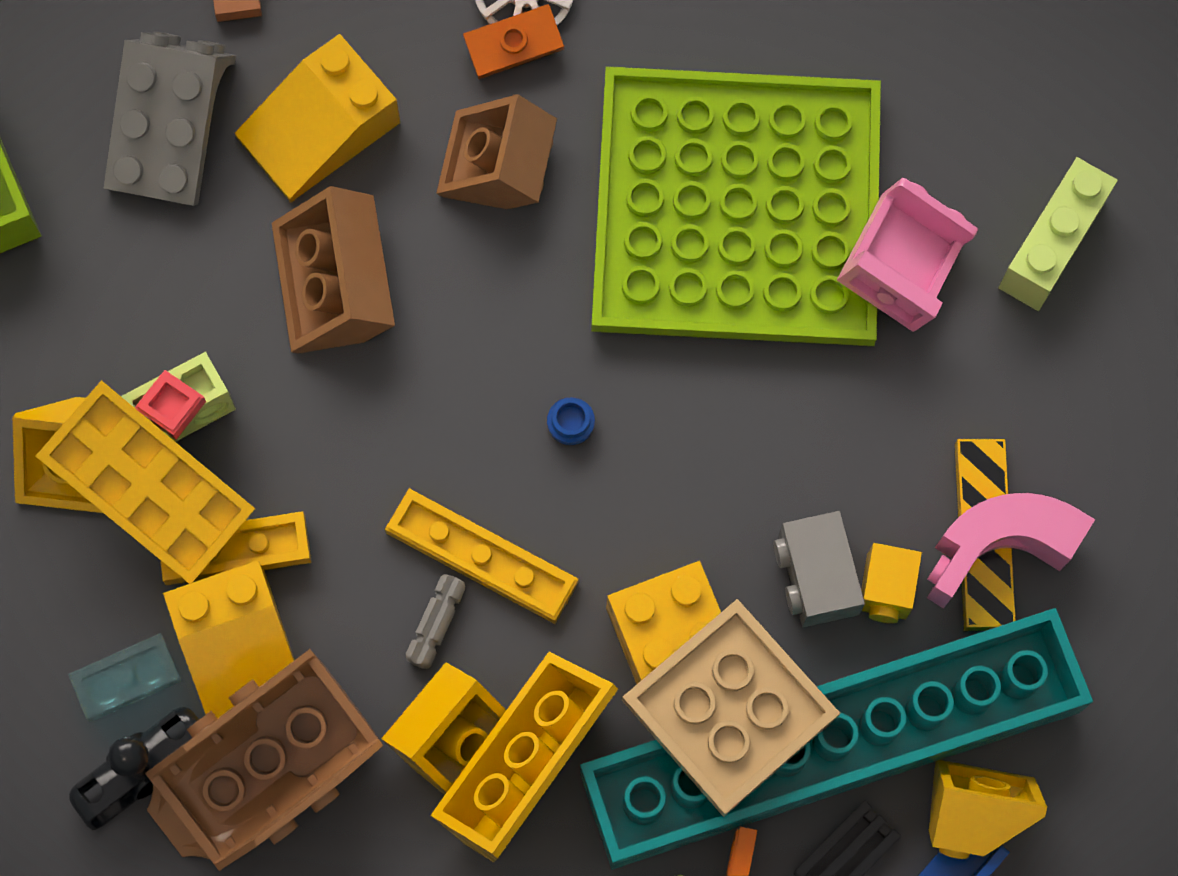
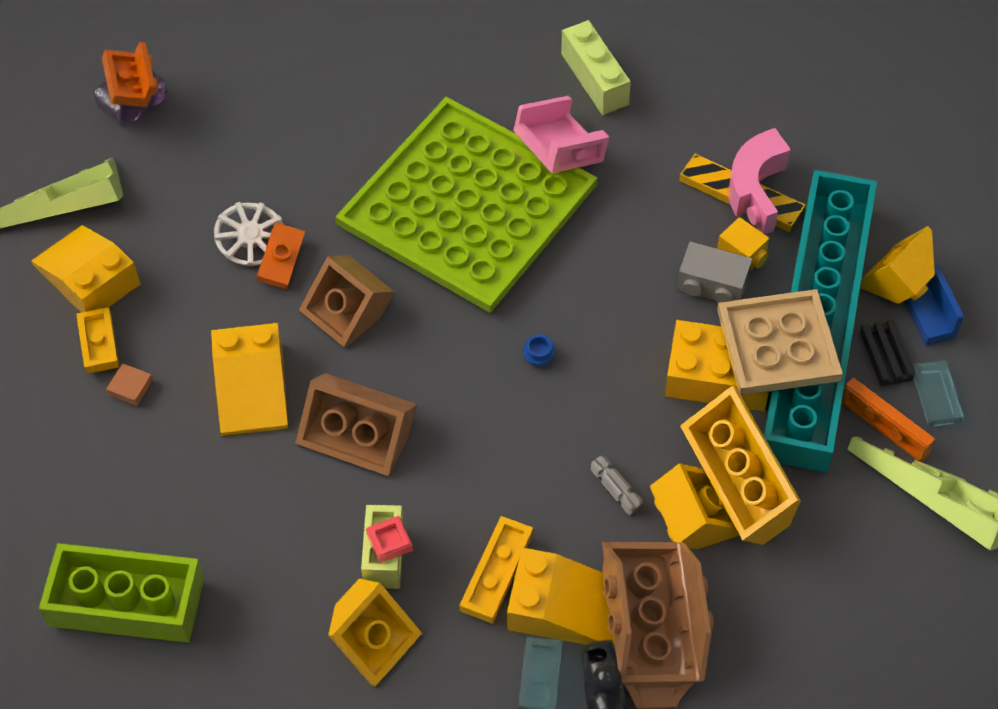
camera: 55 degrees left, 15 degrees down
(145, 482) = (429, 580): yellow plate -> none
(164, 116) = (186, 457): light grey bracket -> none
(482, 556) = (590, 441): yellow tile -> none

